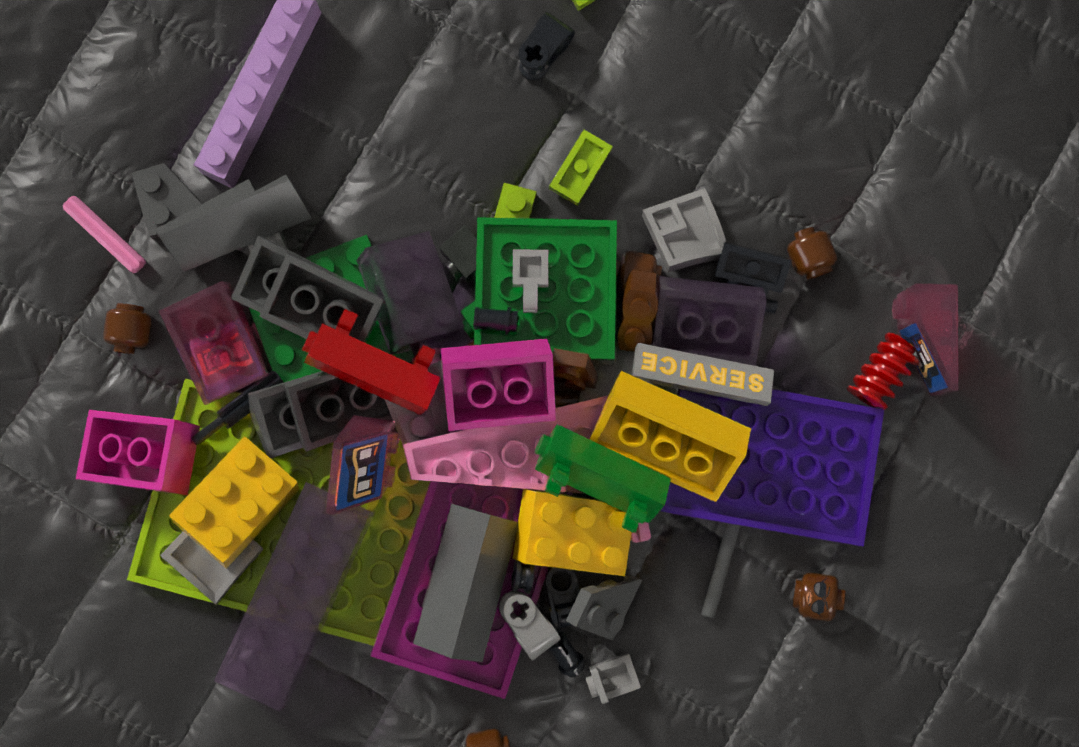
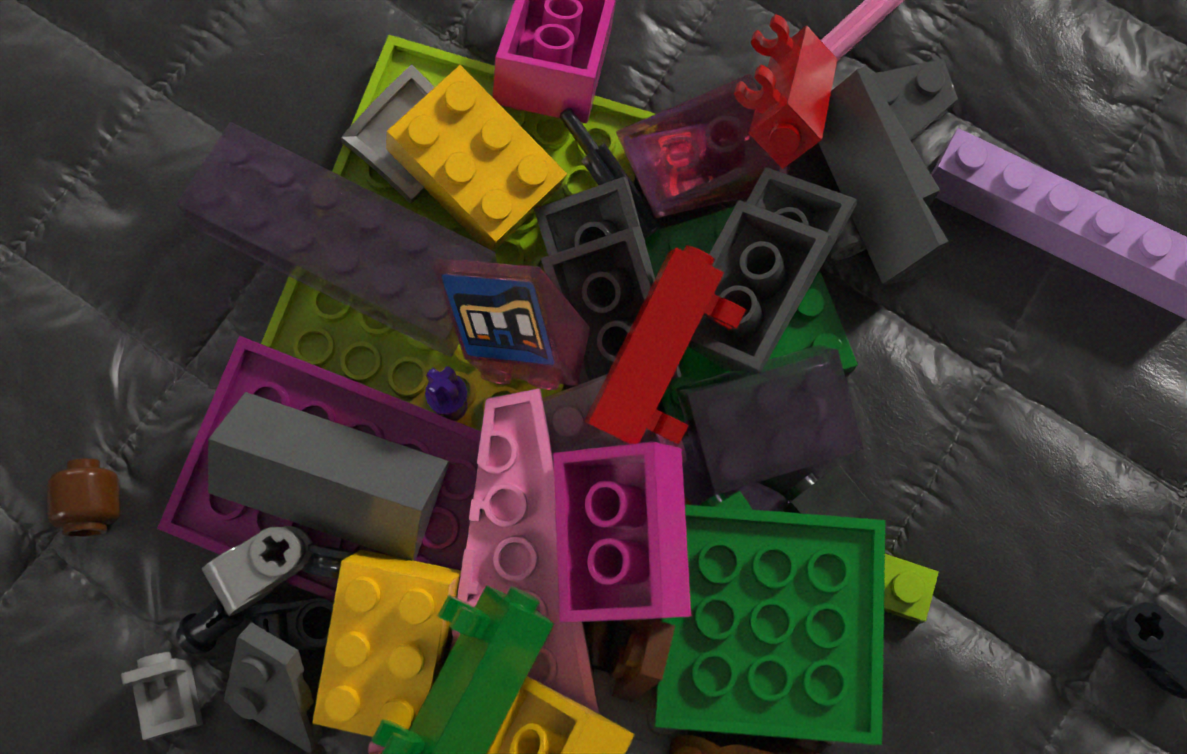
camera: 90 degrees right, 10 degrees down
(127, 328) = (726, 47): reddish brown head -> none
(173, 280) = (793, 92): none -> red brick
(407, 508) = (446, 393): none -> dark purple axle
(496, 320) = (723, 538): black pin -> none
(530, 272) = (797, 594): light grey plate -> none
(580, 167) = (965, 695): lime plate -> none

